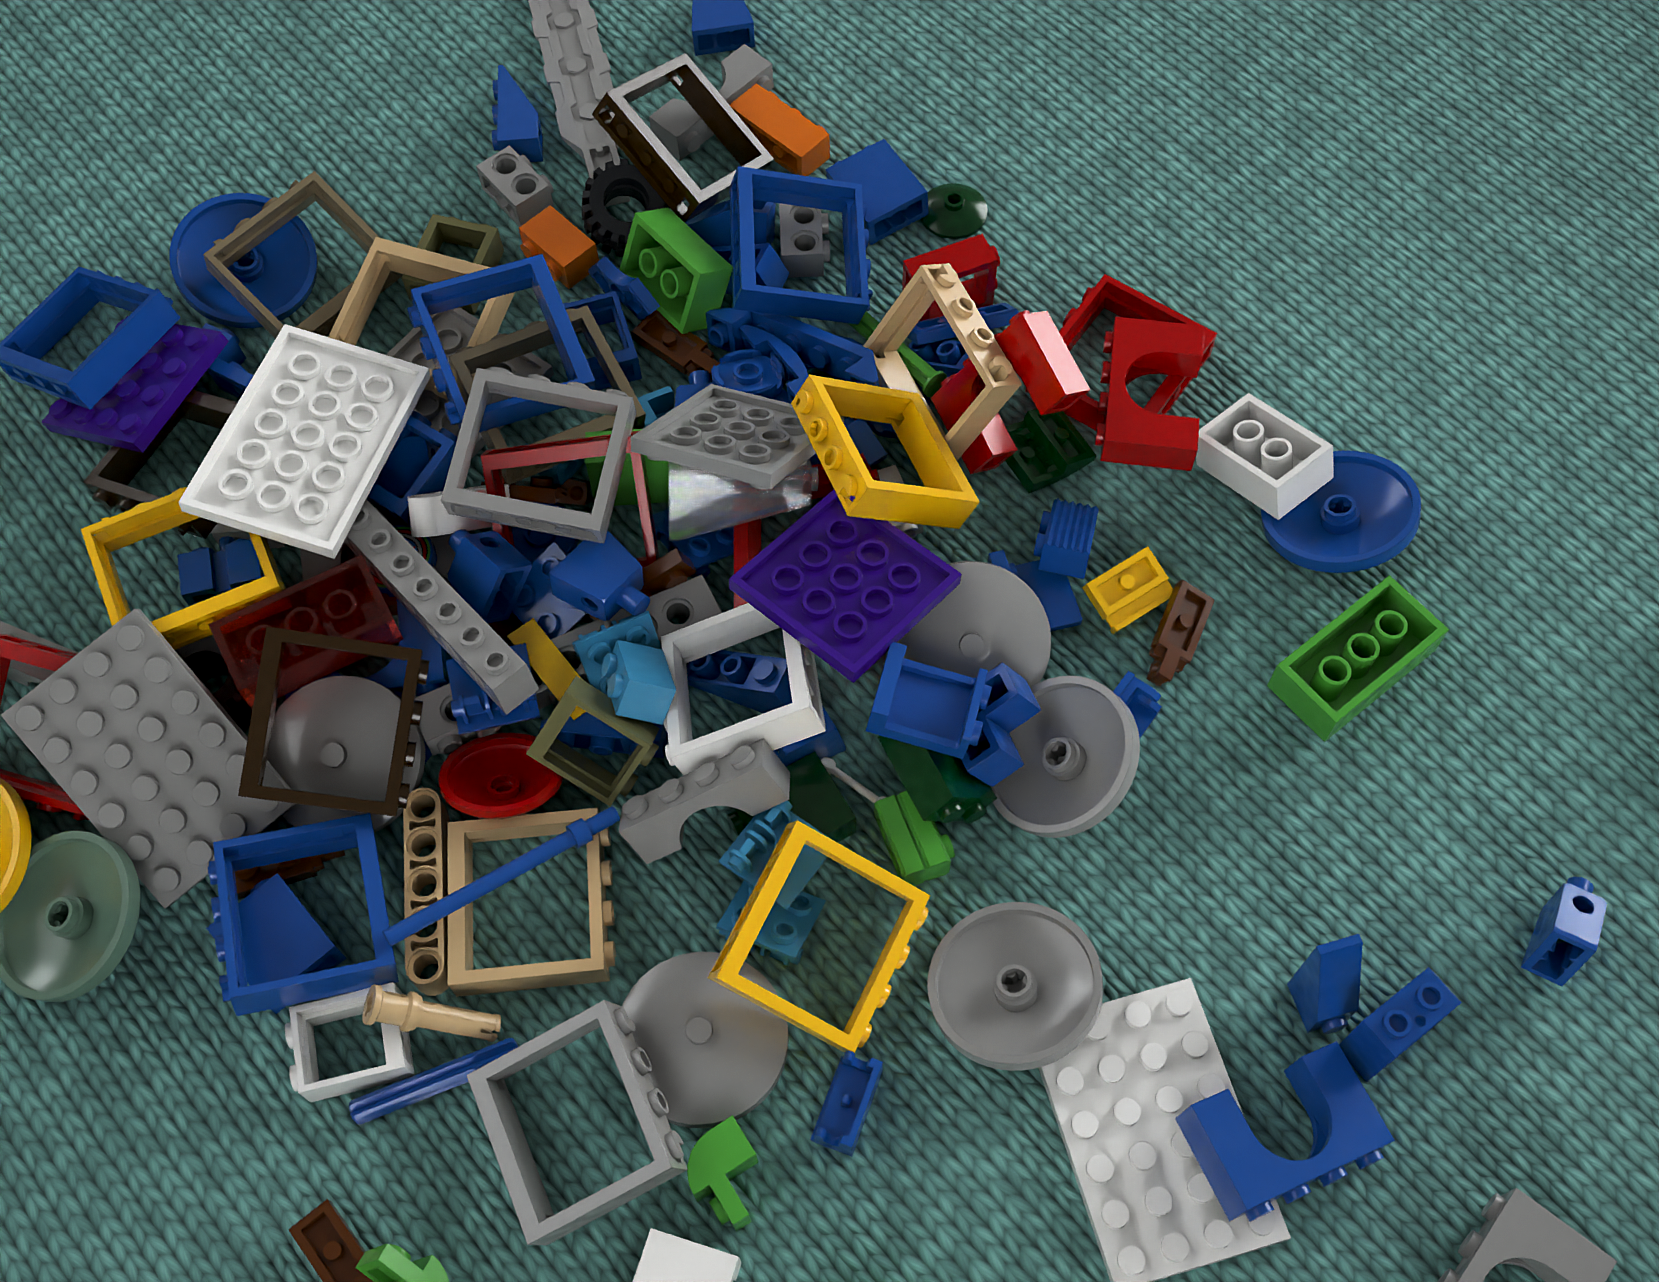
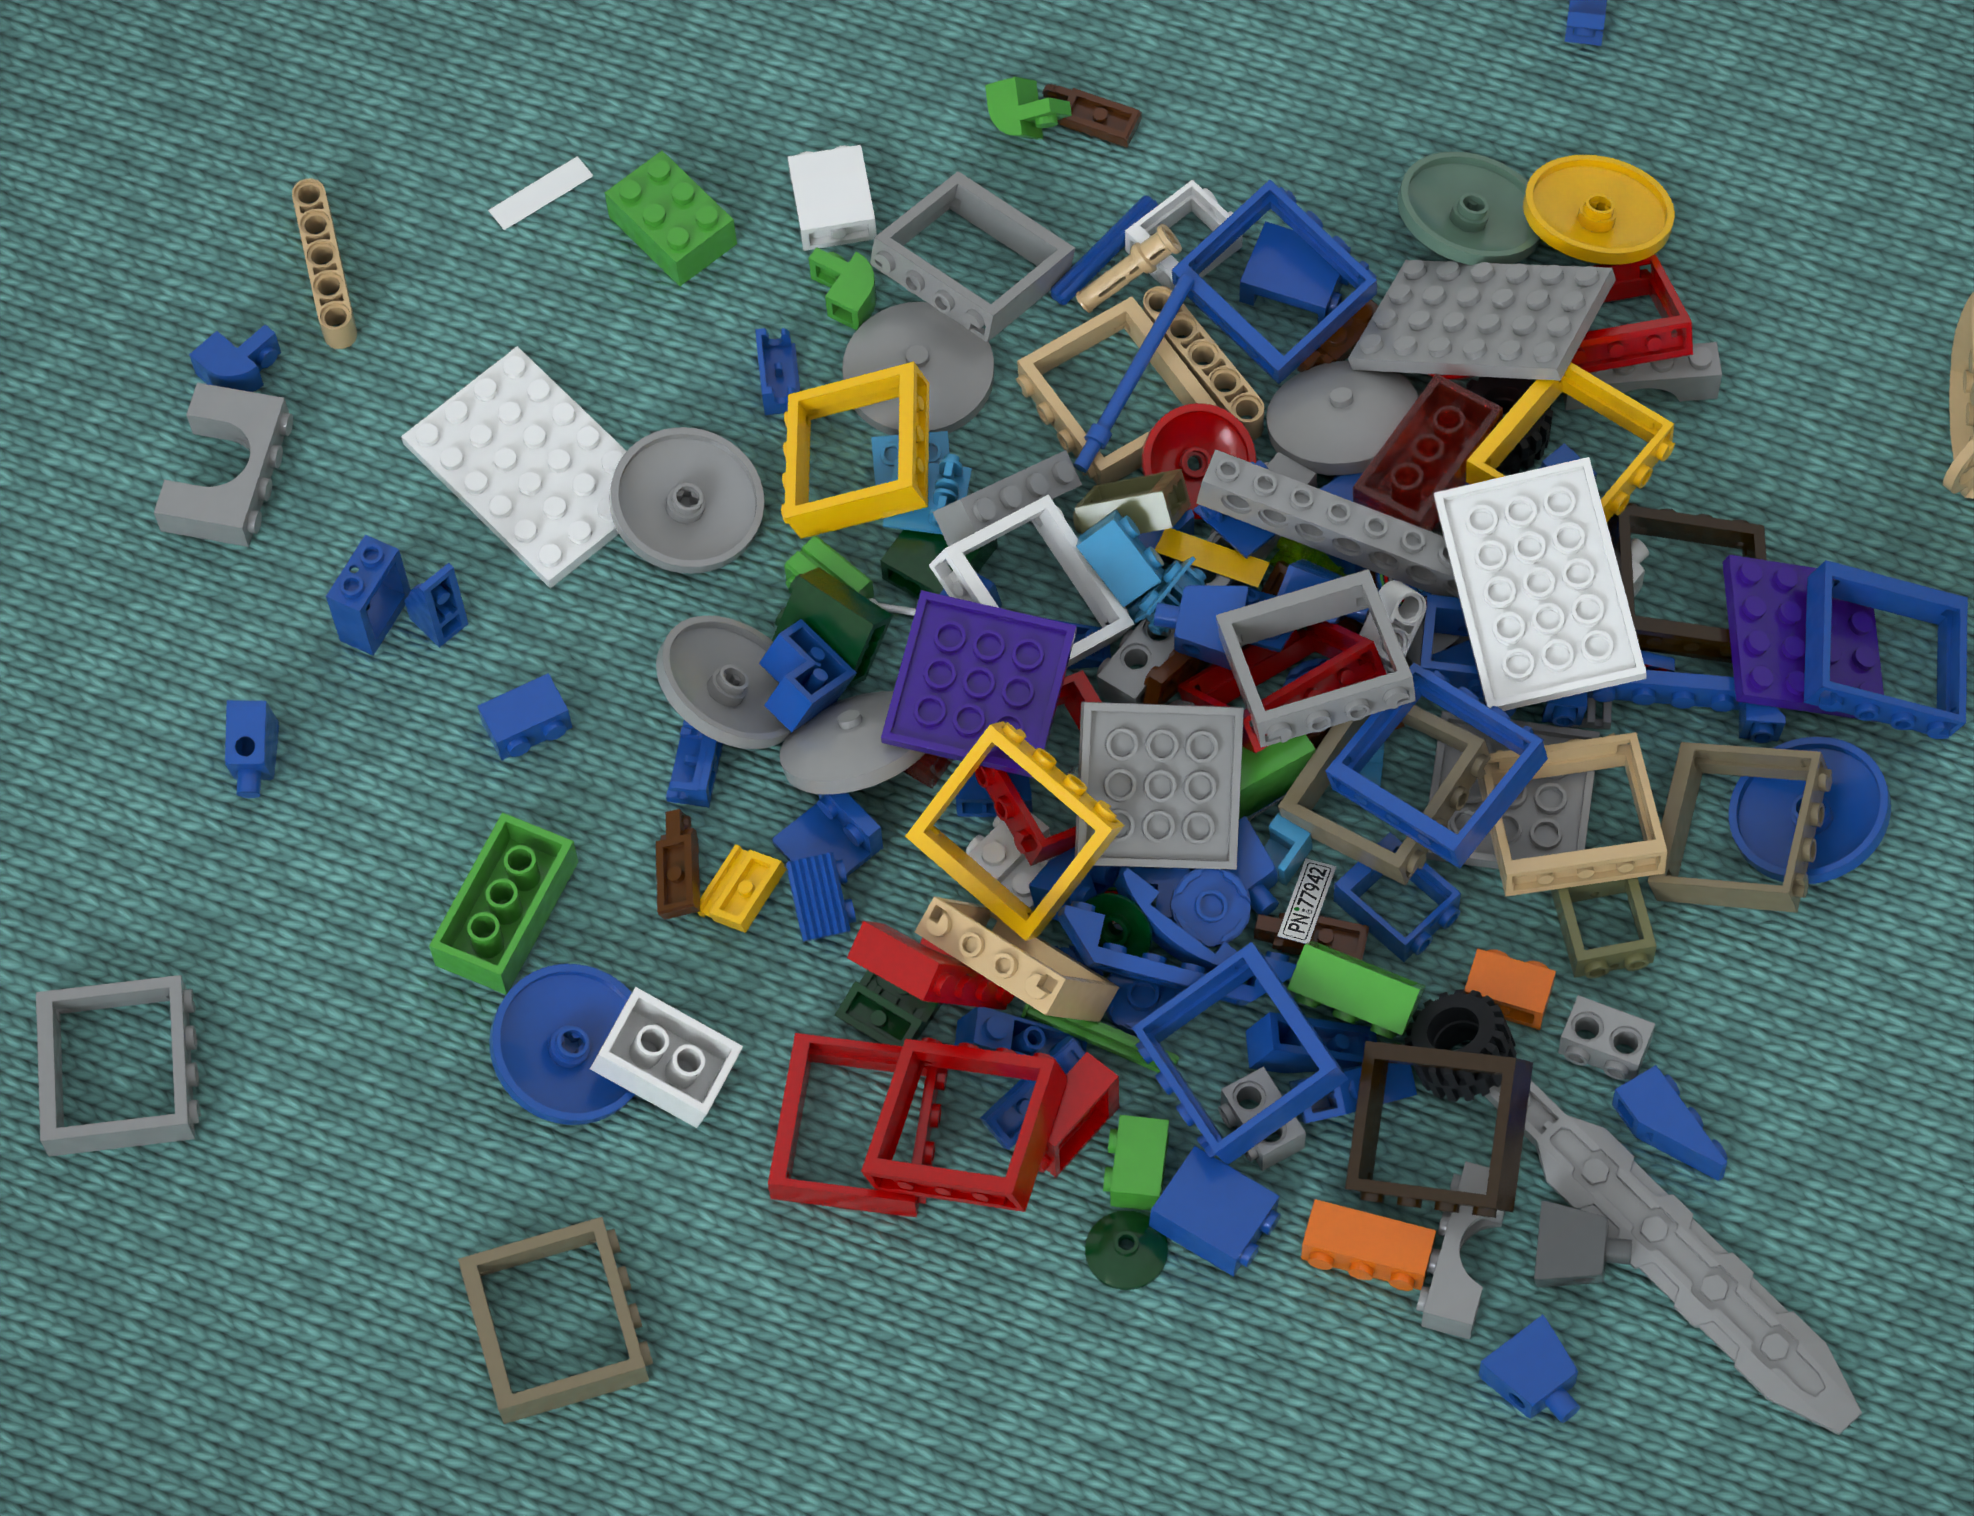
camera: 155 degrees right, 0 degrees up
(264, 710) = (1364, 436): dark brown window -> none
(629, 290) = (1419, 965): blue tile -> none
(633, 58) = (1575, 1247): none -> dark grey torso
(672, 361) = (1306, 901): none -> white sticker
(913, 235) = (1139, 1162): none -> bright green brick
(928, 705) = (855, 632): blue panel -> none
(1074, 235) = (956, 1185): none -> red window
(1128, 430) = (807, 1008): red arch -> none
(1249, 1175) = (439, 441): blue arch -> none
(1270, 837) = (525, 717): none -> blue brick
(1419, 377) = (577, 1387): none -> dark tan window

